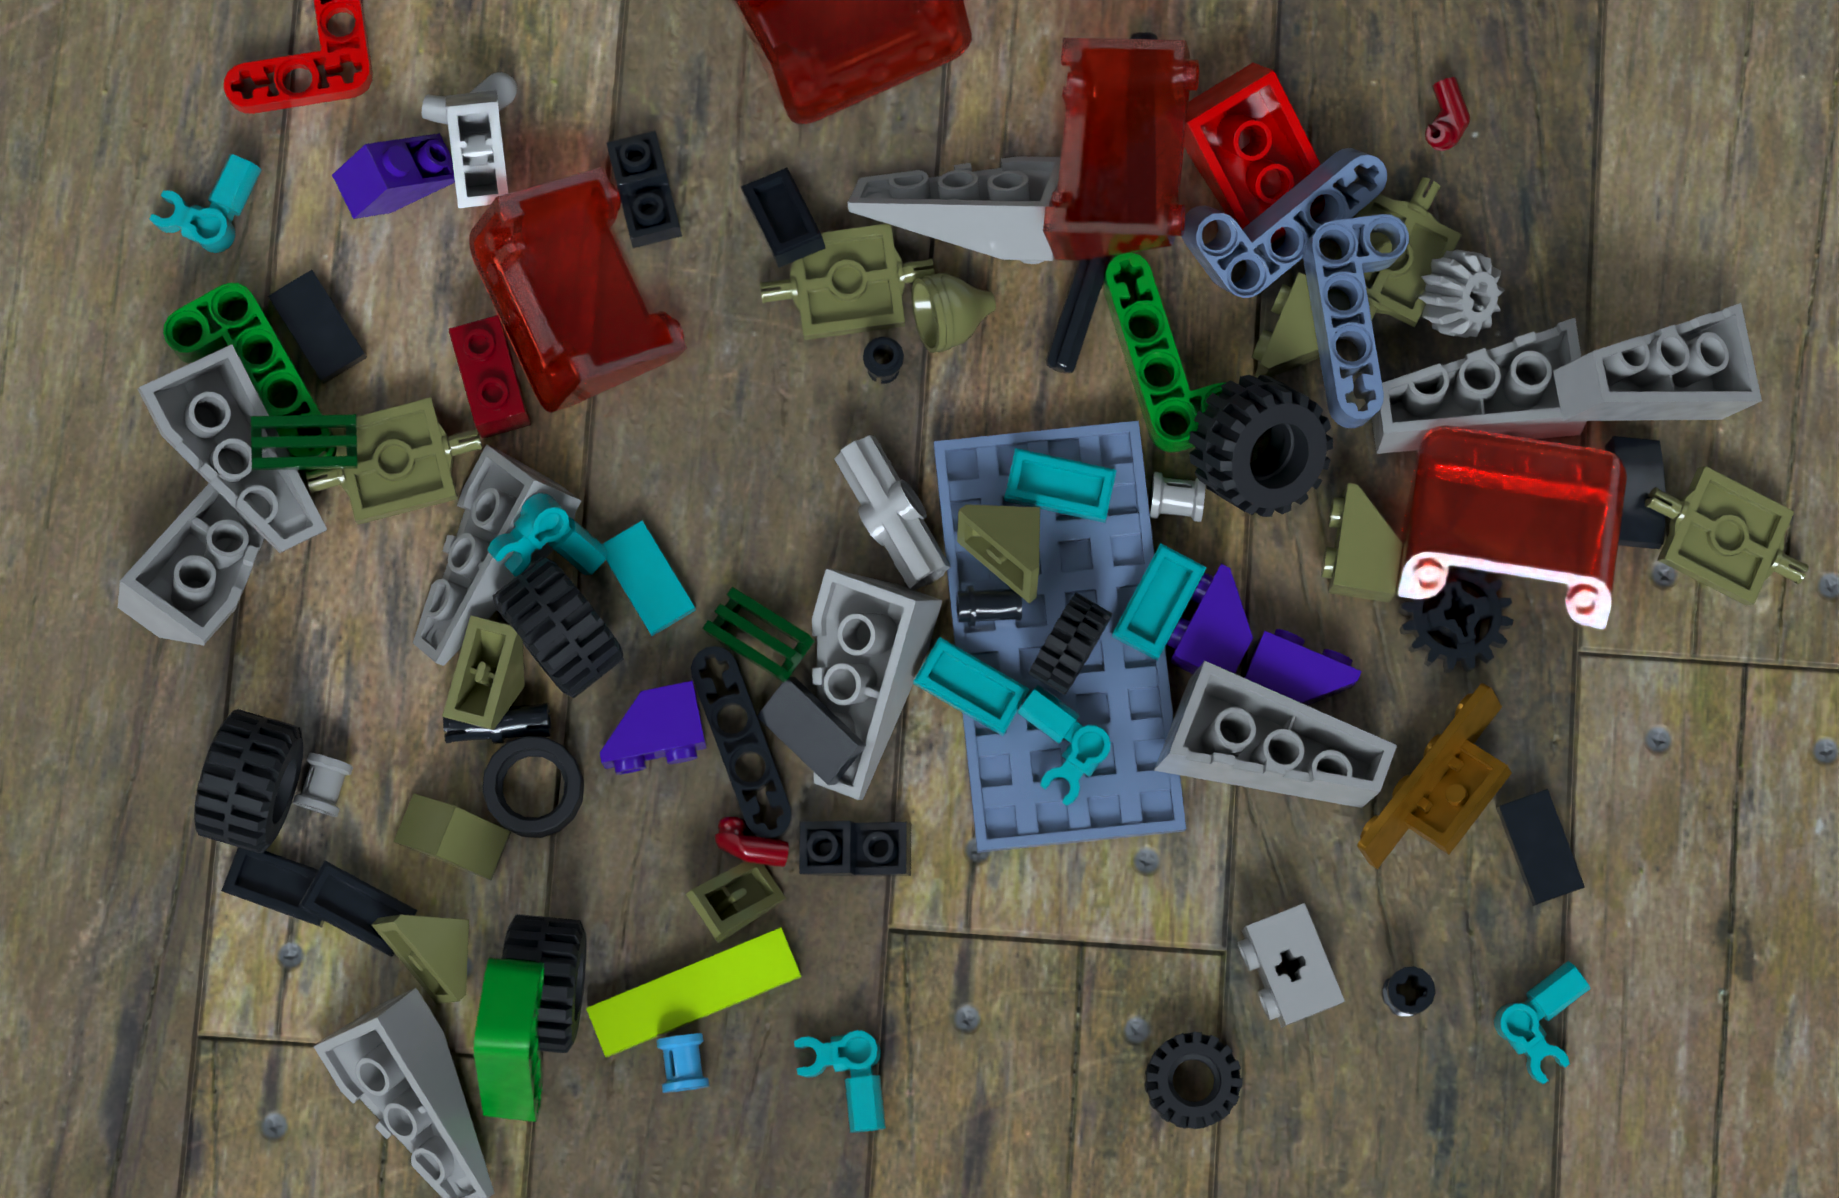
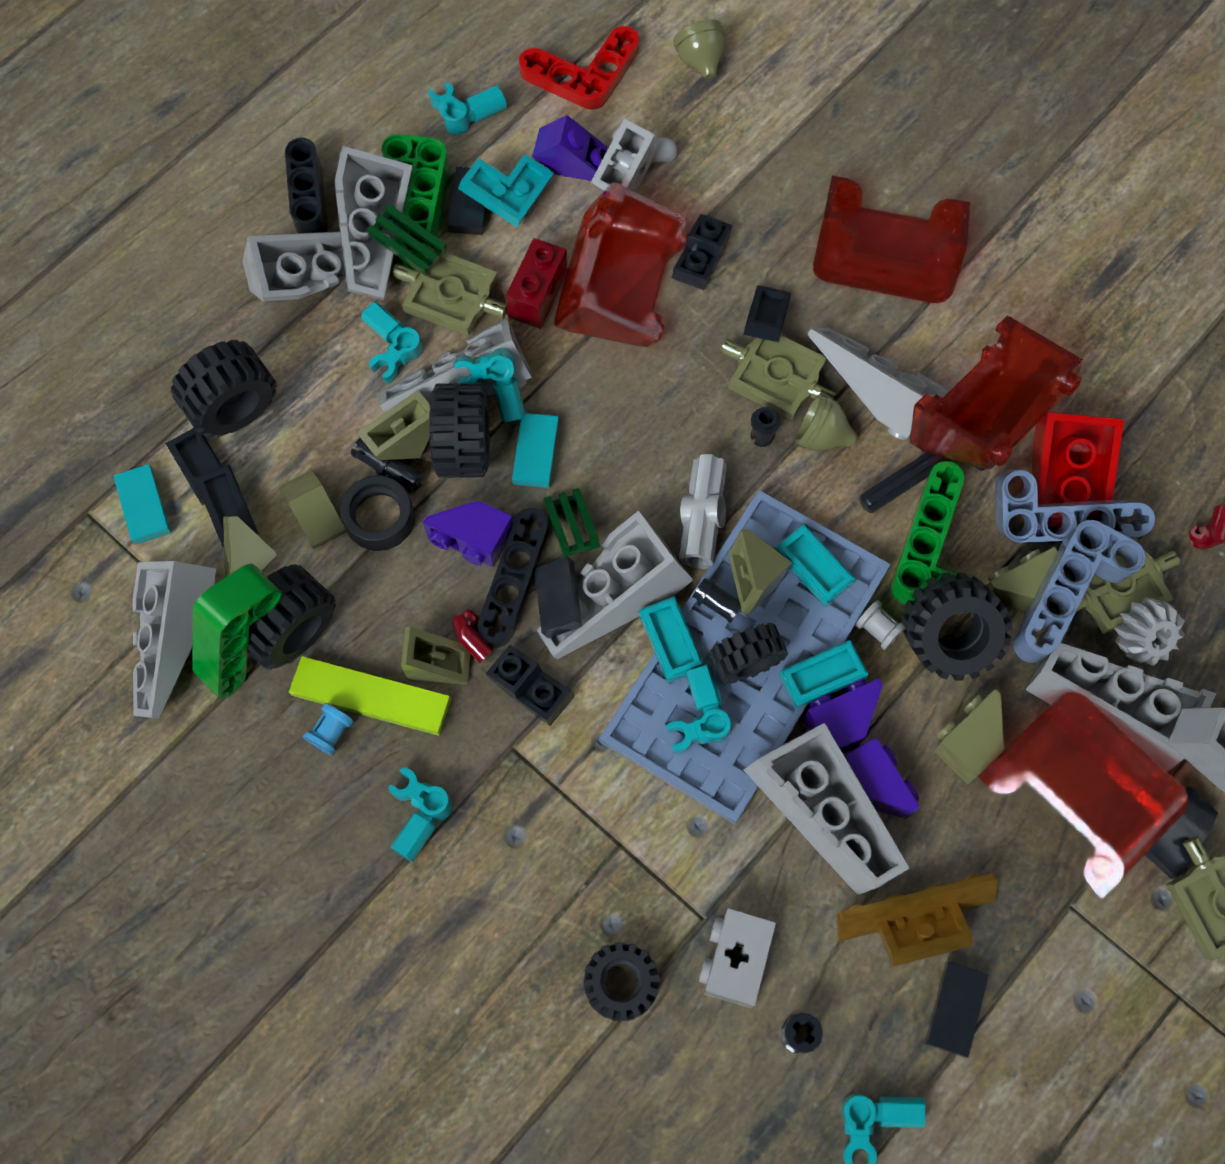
camera: 40 degrees right, 10 degrees down
(101, 441) = (305, 173): none -> black beam
(256, 979) = (142, 504): none -> teal tile
(323, 784) = (266, 427): light grey bush -> none
(367, 288) = (507, 196): none -> teal plate
(395, 564) = (404, 341): none -> teal bar
(1460, 638) = (1022, 826): black gear -> none

